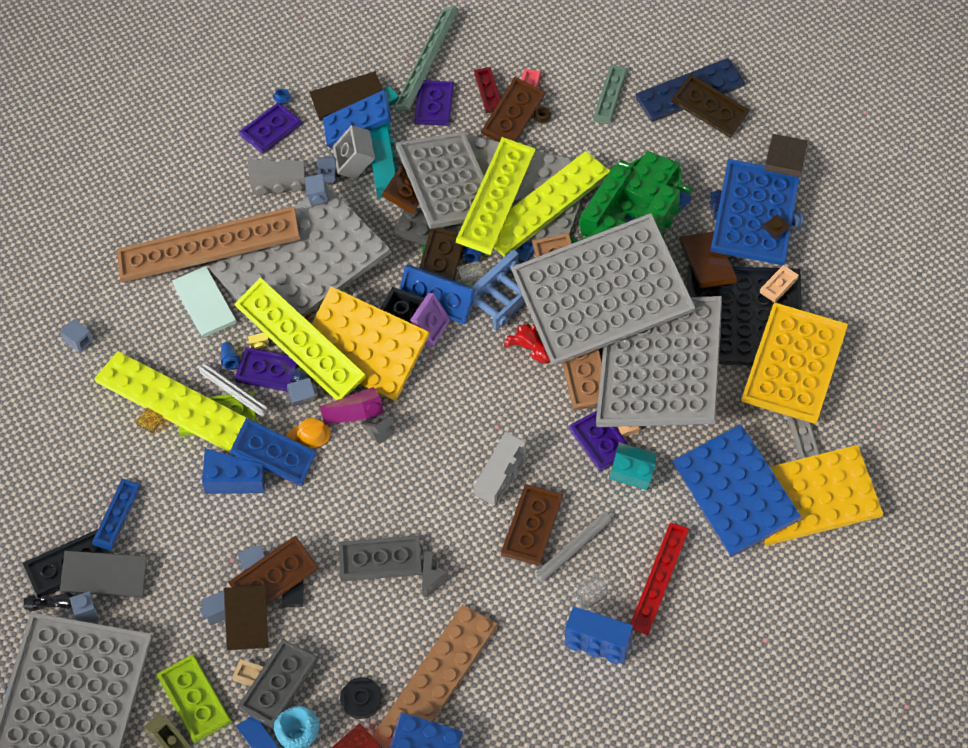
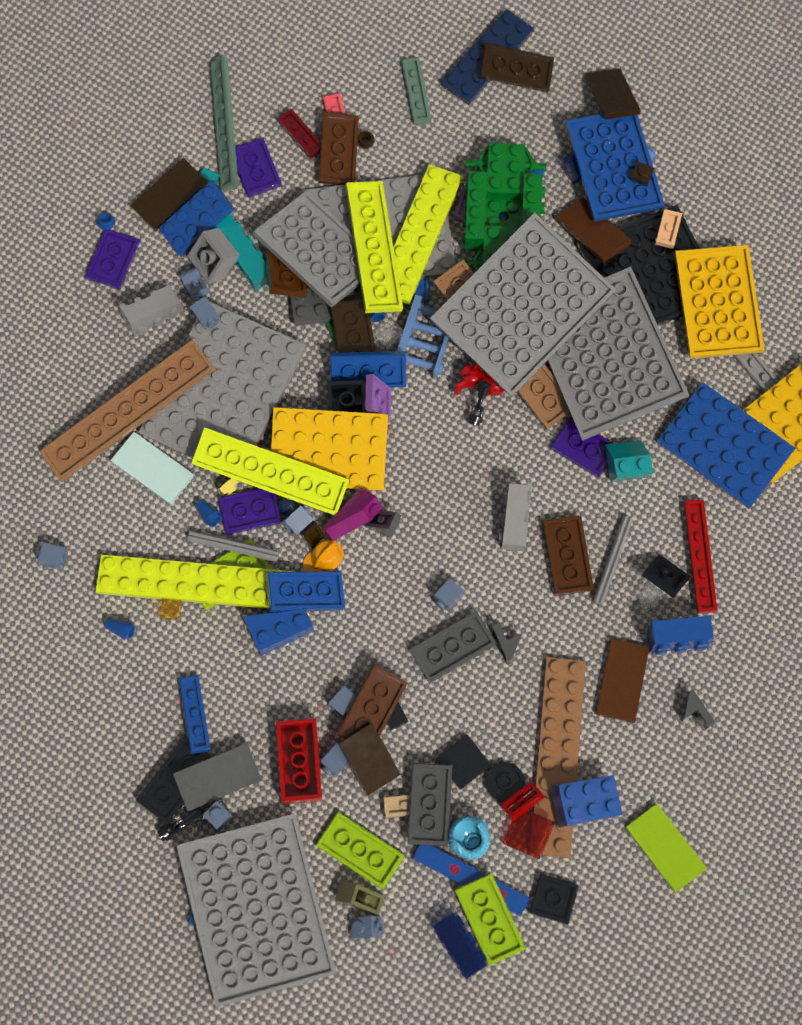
camera: 30 degrees left, 15 degrees up
(98, 417) = (121, 628): none -> blue cone
(181, 593) = (299, 761): none -> red brick
(309, 408) = (312, 534): none -> dark brown plate
(334, 663) = (466, 760): none -> black tile
(365, 719) = (523, 803): none -> red tile
(401, 511) = (448, 595): none -> sand blue brick
(523, 657) = (622, 681): none -> reddish brown tile
(530, 348) = (483, 389): none -> black piece
(578, 710) = (694, 705): none -> dark grey slope
(614, 579) = (666, 576): none -> black tile

